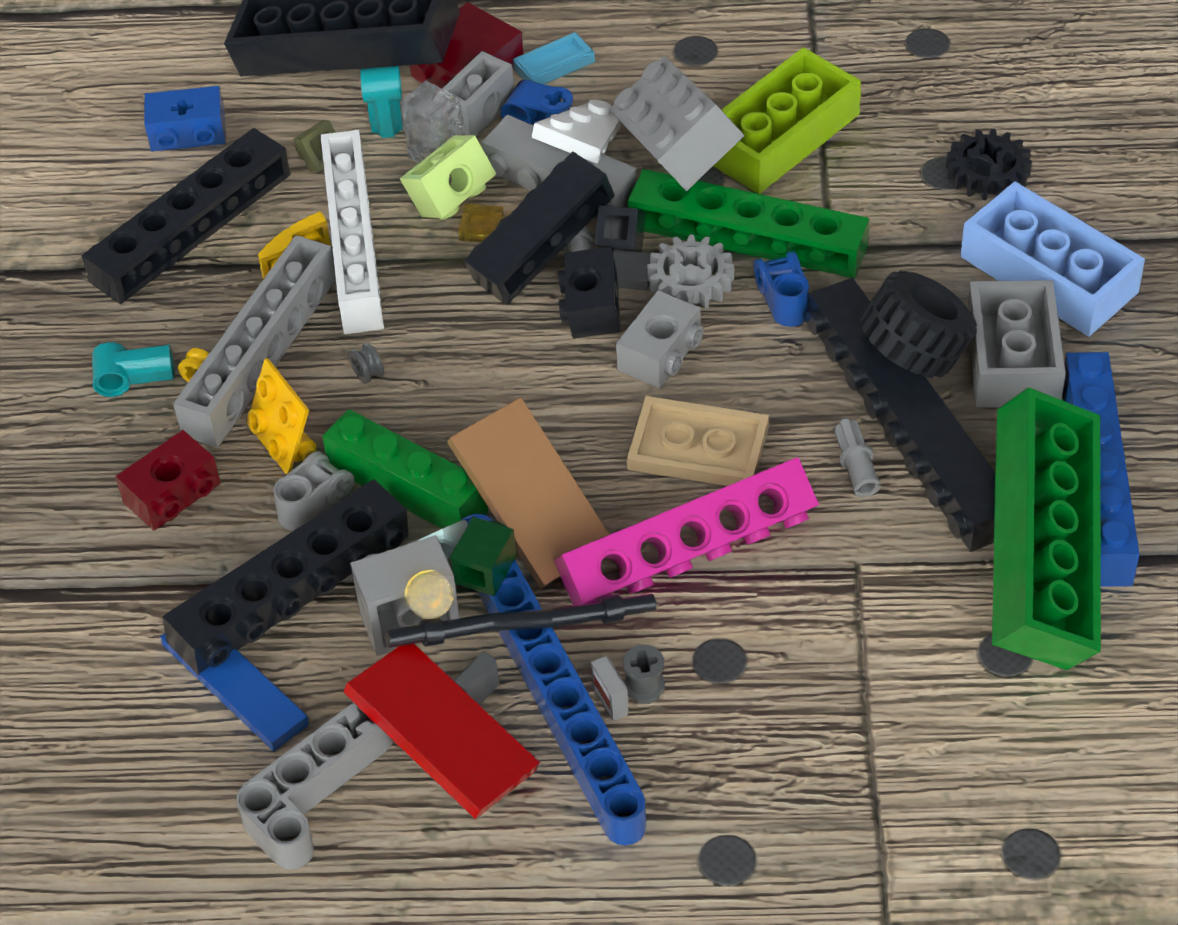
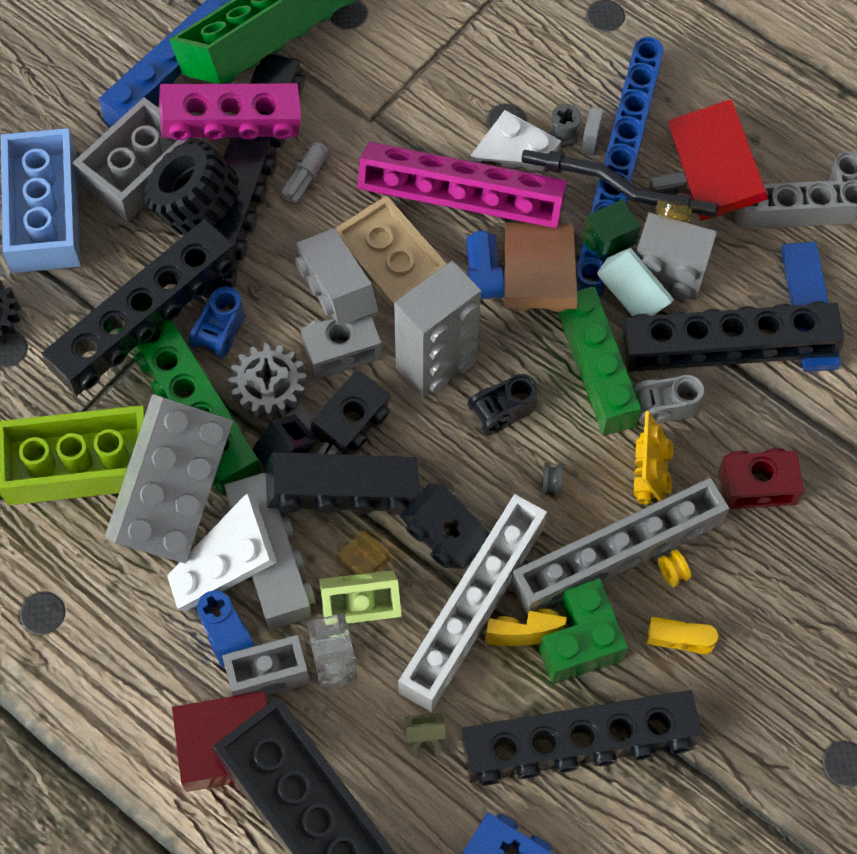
camera: 145 degrees left, 15 degrees up
(118, 368) = (733, 613): teal piece -> none
(156, 328) = (680, 635): none -> yellow bar
(229, 265) = (592, 635): none -> green brick
(383, 93) = (342, 718): teal piece -> none
(423, 256) = (462, 530): none -> black brick
(463, 392) = (499, 408): none -> black piece
(554, 59) = (158, 686): medium azure tile -> none
(557, 340) = (437, 329): none -> light grey brick
(604, 492) = (484, 264): none -> blue piece
(684, 629) = (509, 139): none -> white wing
(712, 362) = (335, 277): none -> light grey brick
(845, 219) = (145, 289): none -> black brick
(986, 379) = (244, 100): none -> dark pink brick

